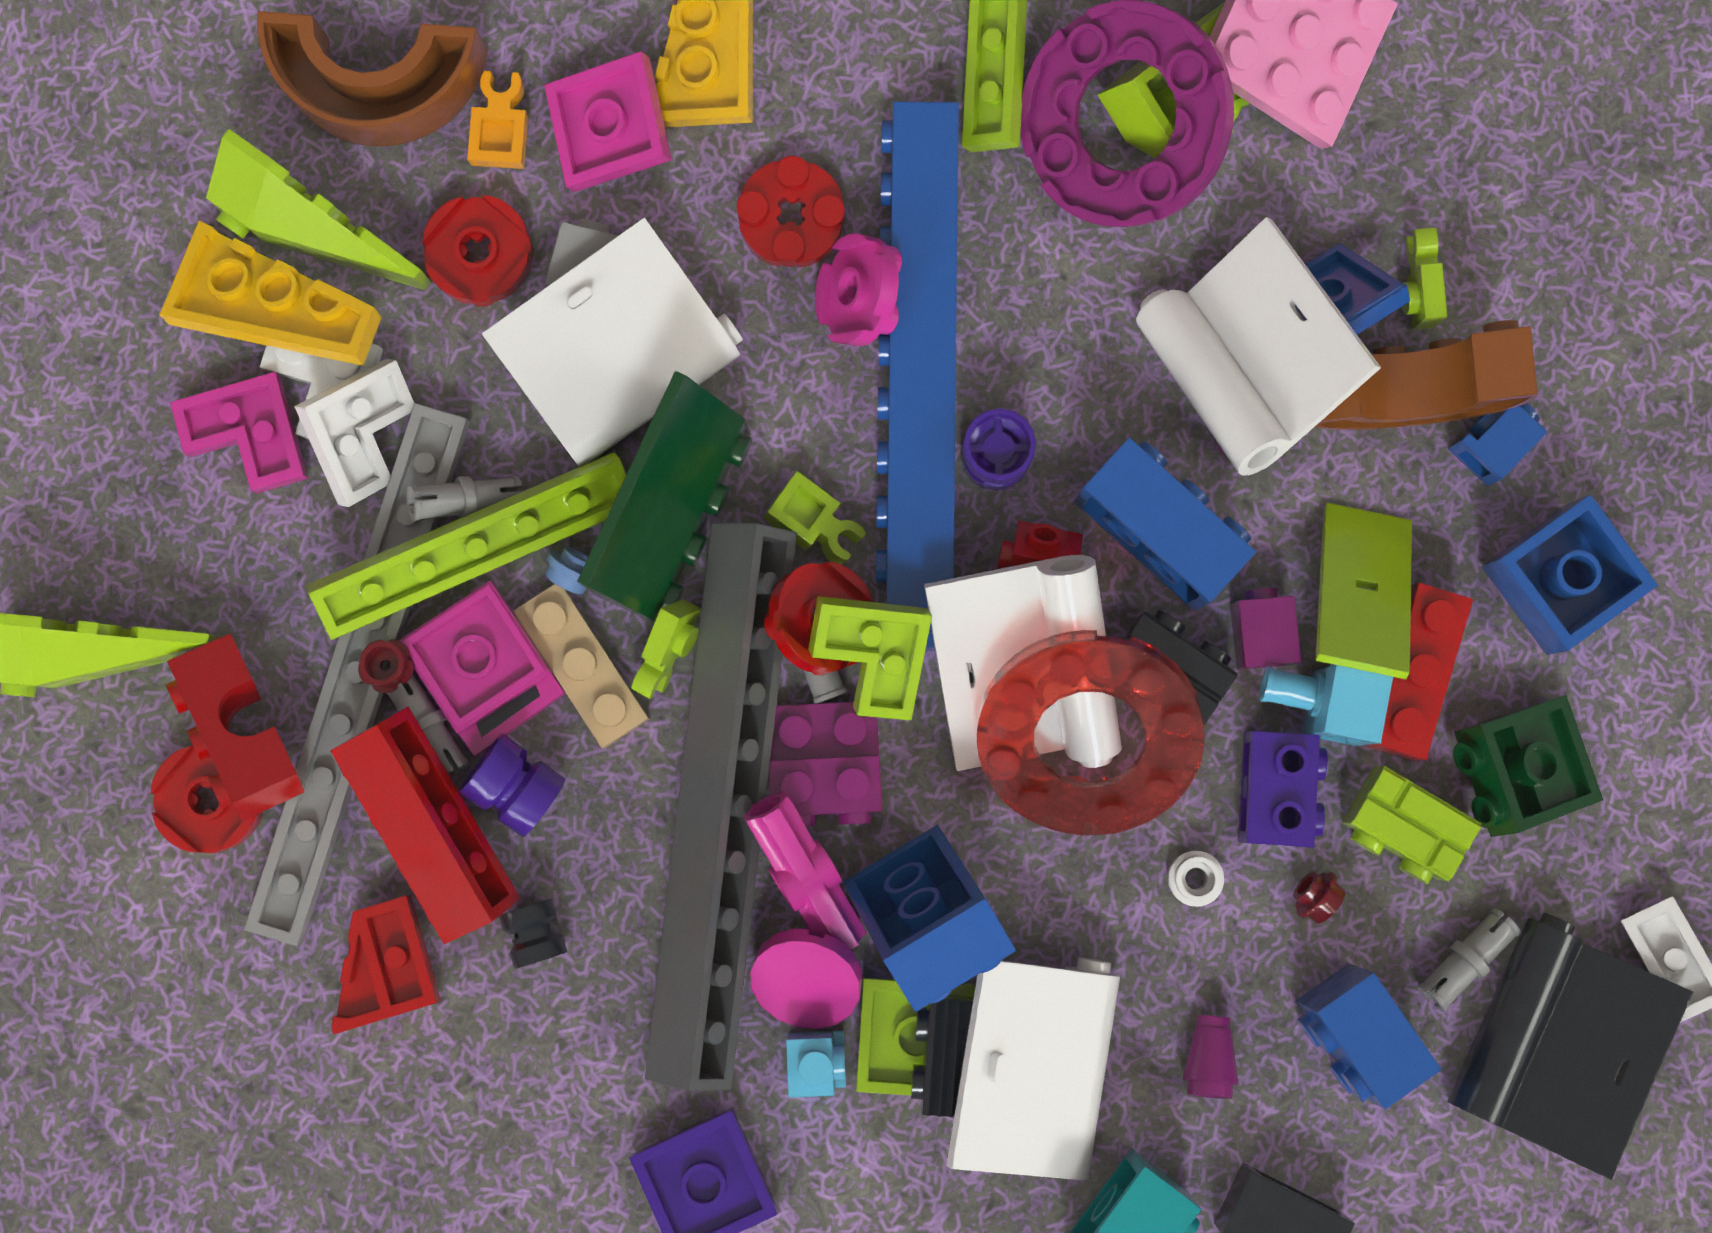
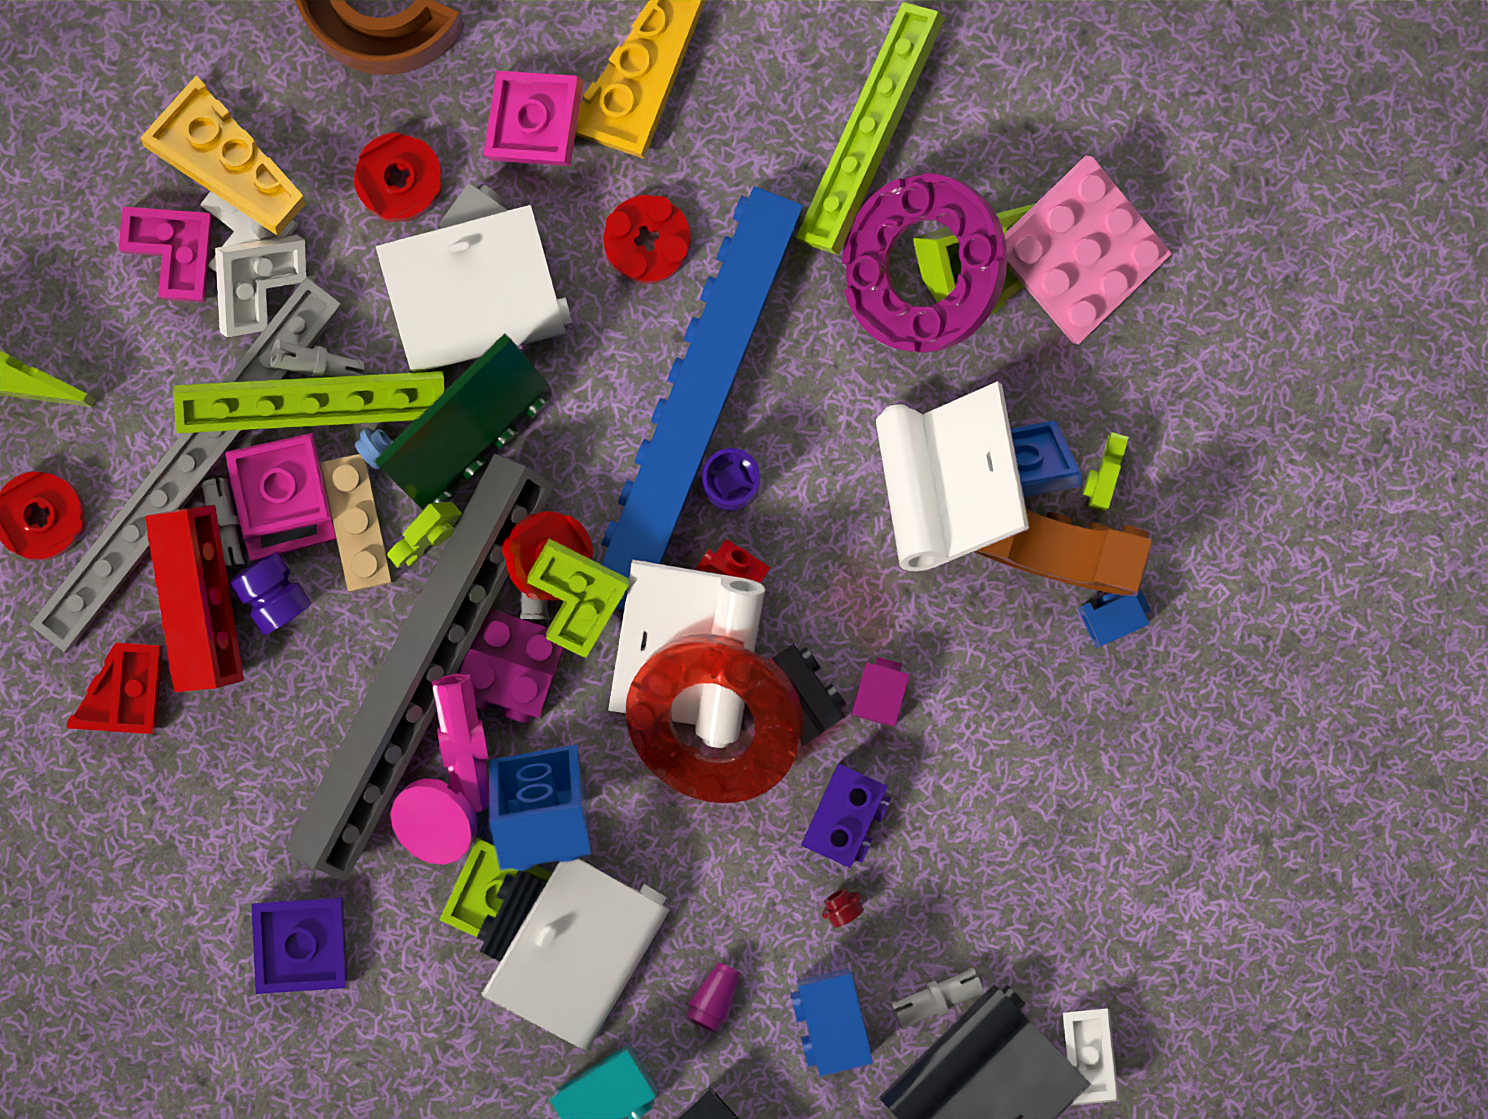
camera: 15 degrees right, 0 degrees up
(250, 769) = (81, 507): red arch -> none
(272, 205) = (260, 92): lime wedge -> none
(372, 659) = (203, 457): dark red plate -> none
(499, 130) = (448, 92): light orange plate -> none
(533, 934) = (243, 709): black wheel -> none
(809, 512) = (570, 473): lime plate -> none
(815, 1063) = (417, 887): medium azure brick -> none
(872, 269) = (673, 319): dark pink plate -> none
(1165, 524) = (833, 582): blue brick -> none
(1213, 878) = (771, 859): white plate -> none
(1338, 700) = (912, 764): medium azure brick -> none
(1358, 624) = (947, 714): lime piece -> none
(1411, 825) = (932, 880): lime brick -> none
(1416, 702) = (980, 767): red arch -> none
(1526, 767) = (1037, 870): dark green plate -> none
(1569, 576) = (1124, 738): blue brick -> none

